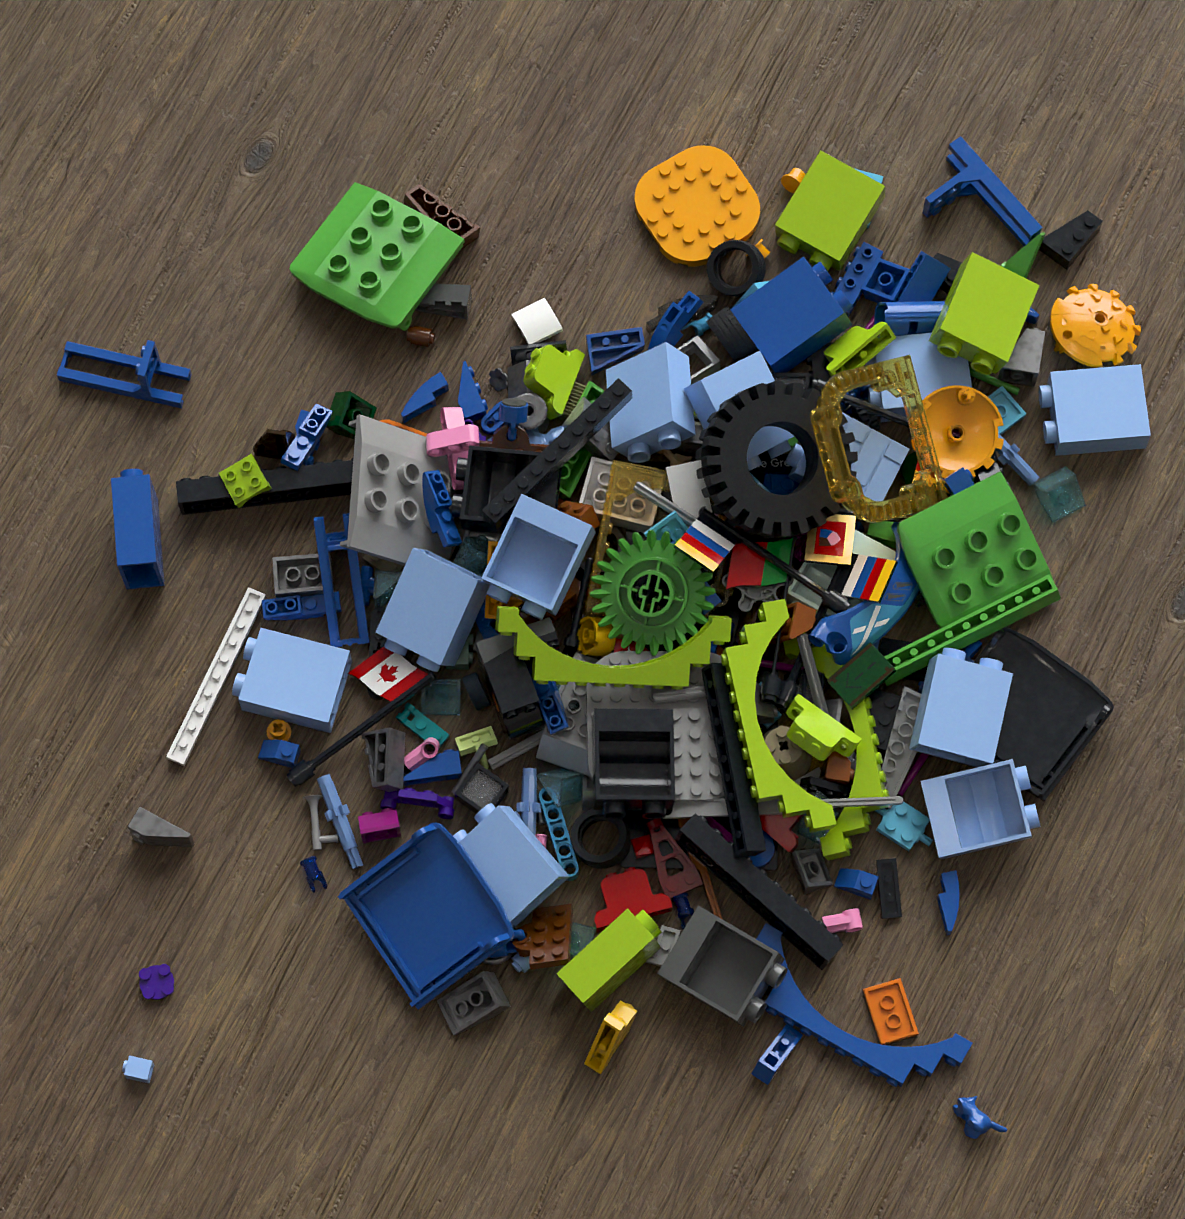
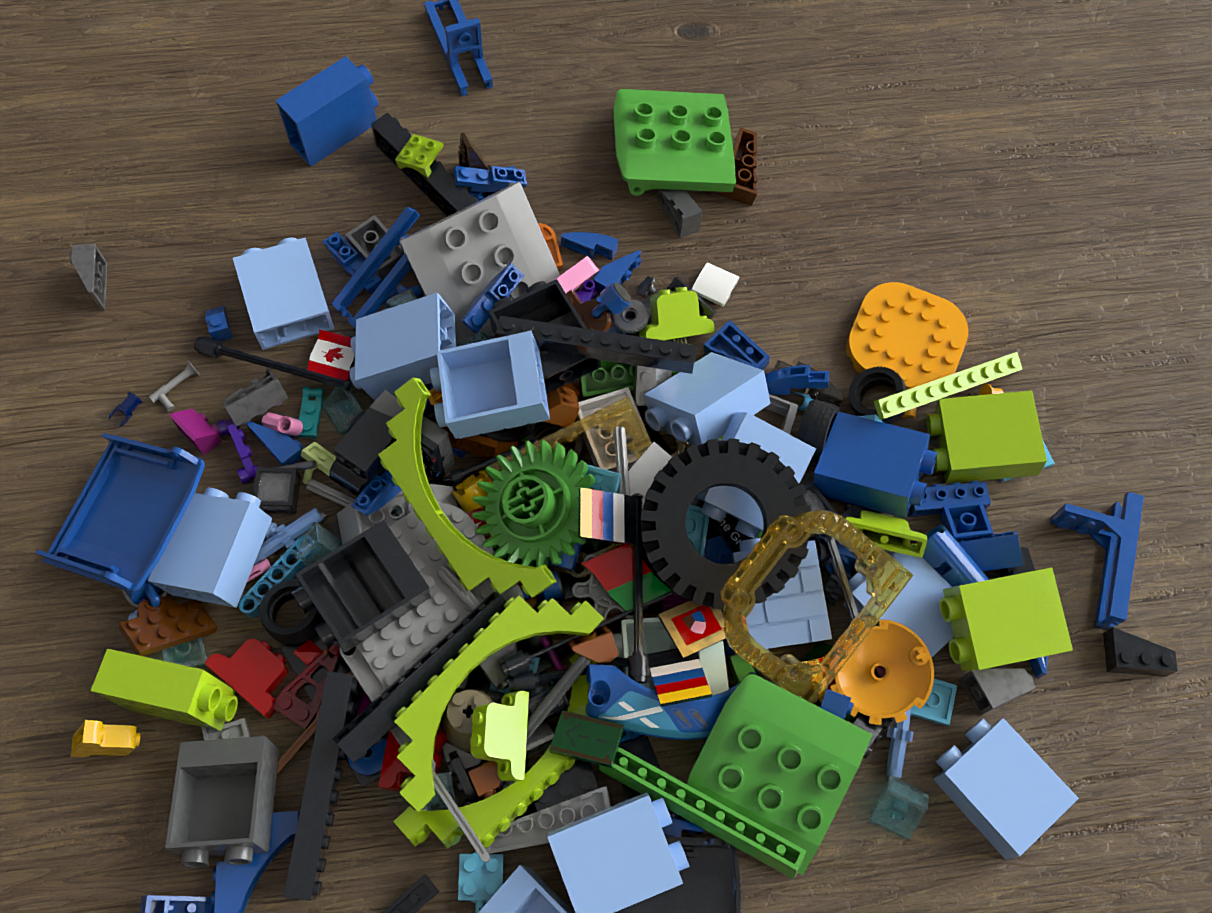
camera: 50 degrees right, 5 degrees down
(216, 677) = (259, 239): white plate -> none
(279, 730) = (237, 311): light orange piece -> none
(337, 814) = (188, 394): medium blue piece -> none
(345, 409) = (542, 202): dark green slope -> none
(420, 336) = (638, 211): reddish brown brick -> none
(452, 440) = (555, 268): bright pink beam -> none
(473, 1002) = (79, 605): flat silver slope -> none
(683, 907) = (273, 727): clear blue piece -> none
(767, 207) = (947, 385): none -> plate
(811, 870) = (377, 819): flat silver slope -> none
(847, 921) = (350, 887): bright pink piece -> none
(856, 882) = (394, 871): blue slope -> none
(912, 773) = (530, 852): magenta bar -> none
(994, 381) = (955, 677): bright green bar -> none
(1024, 258) = (1087, 624): bright green slope -> none
(1082, 337) = (1059, 728): light orange piece -> none

